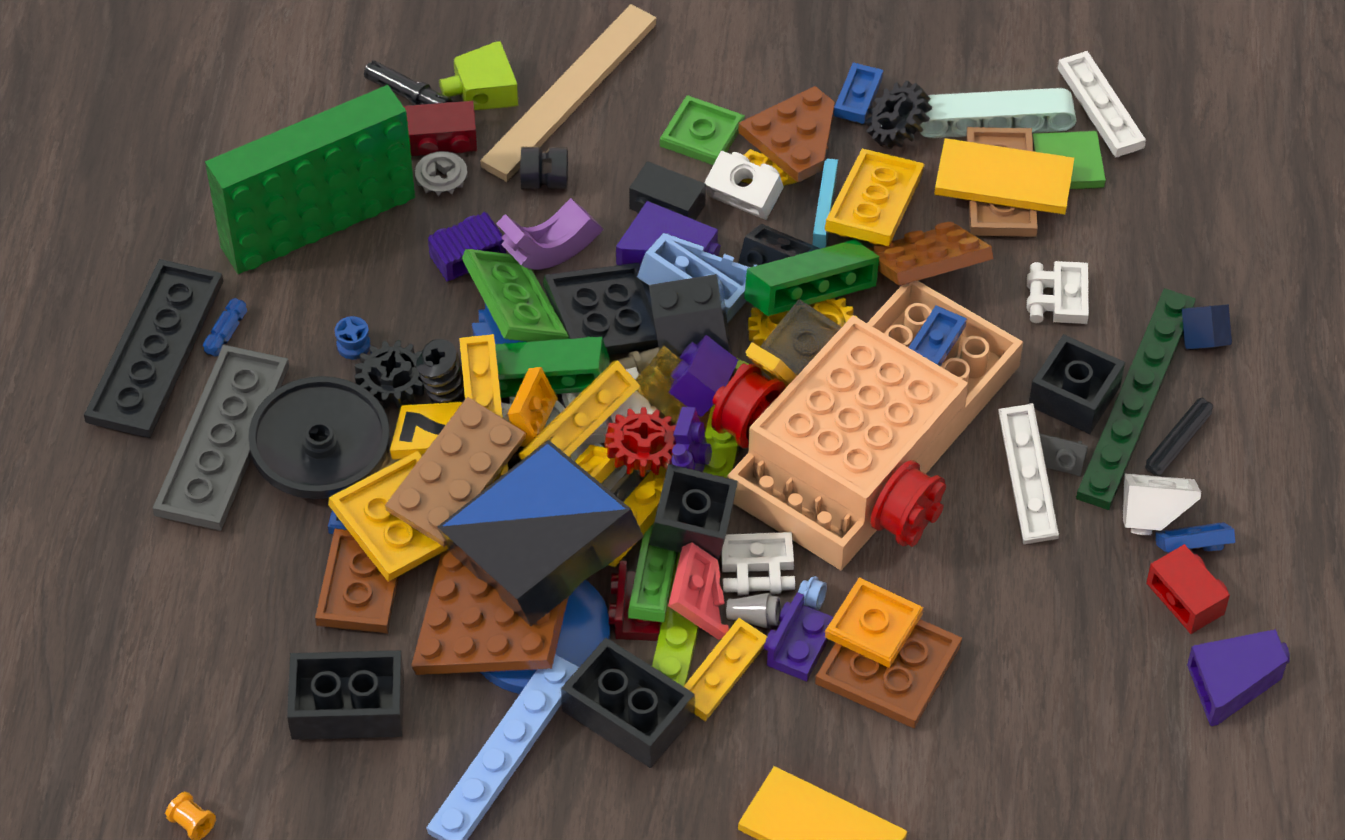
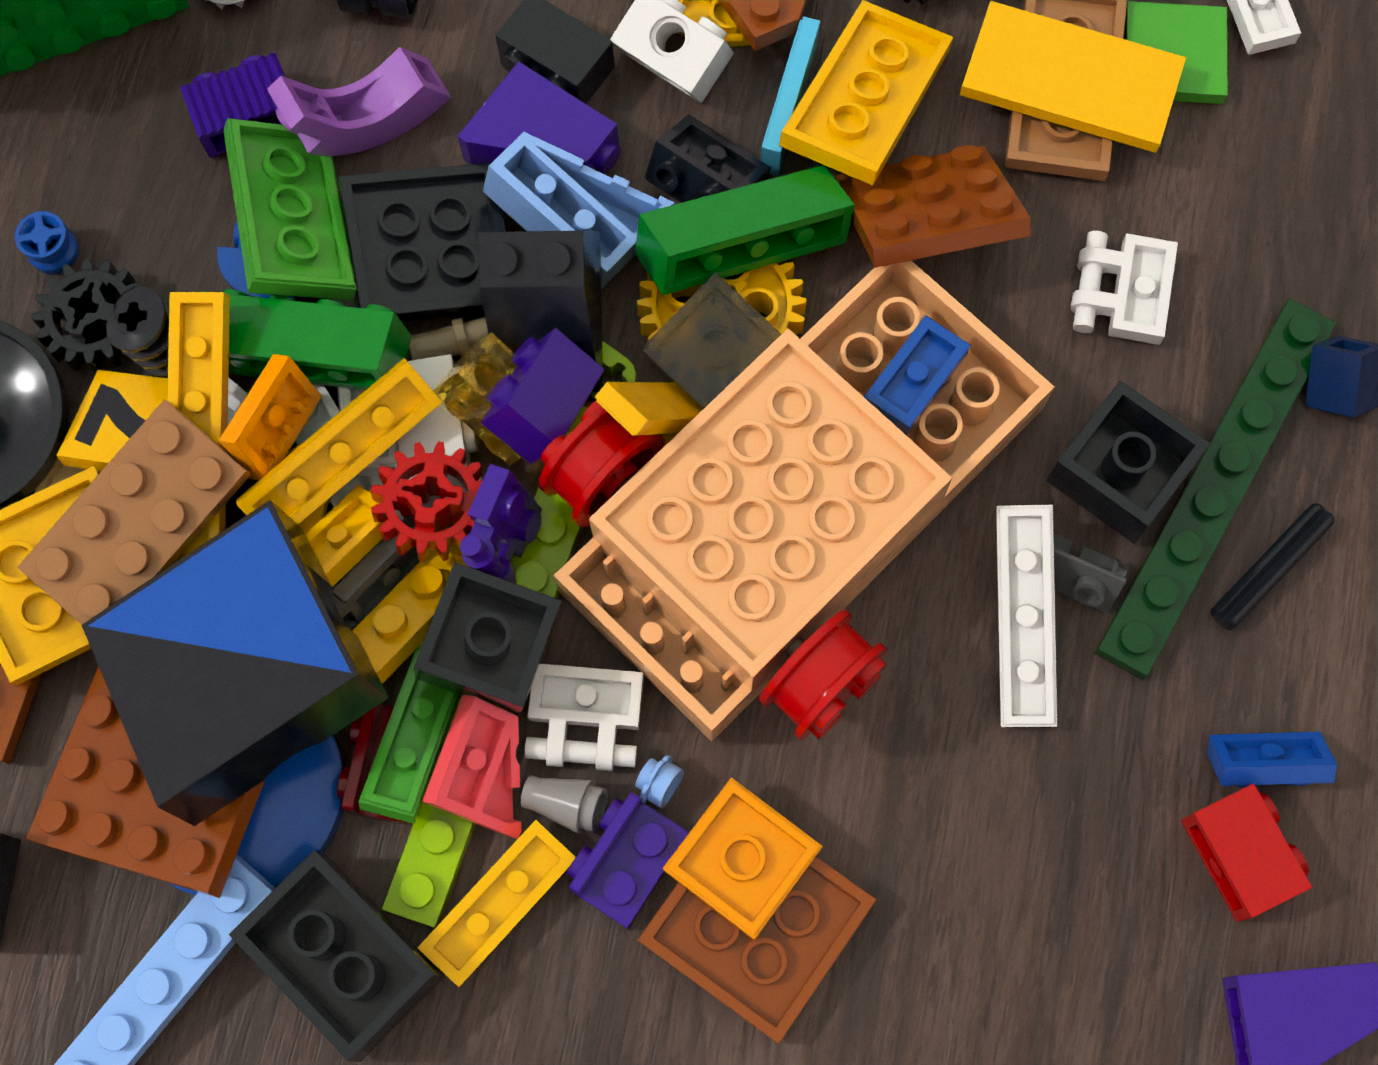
camera: 10 degrees right, 20 degrees up
(1156, 501) = (1223, 684): white slope -> none

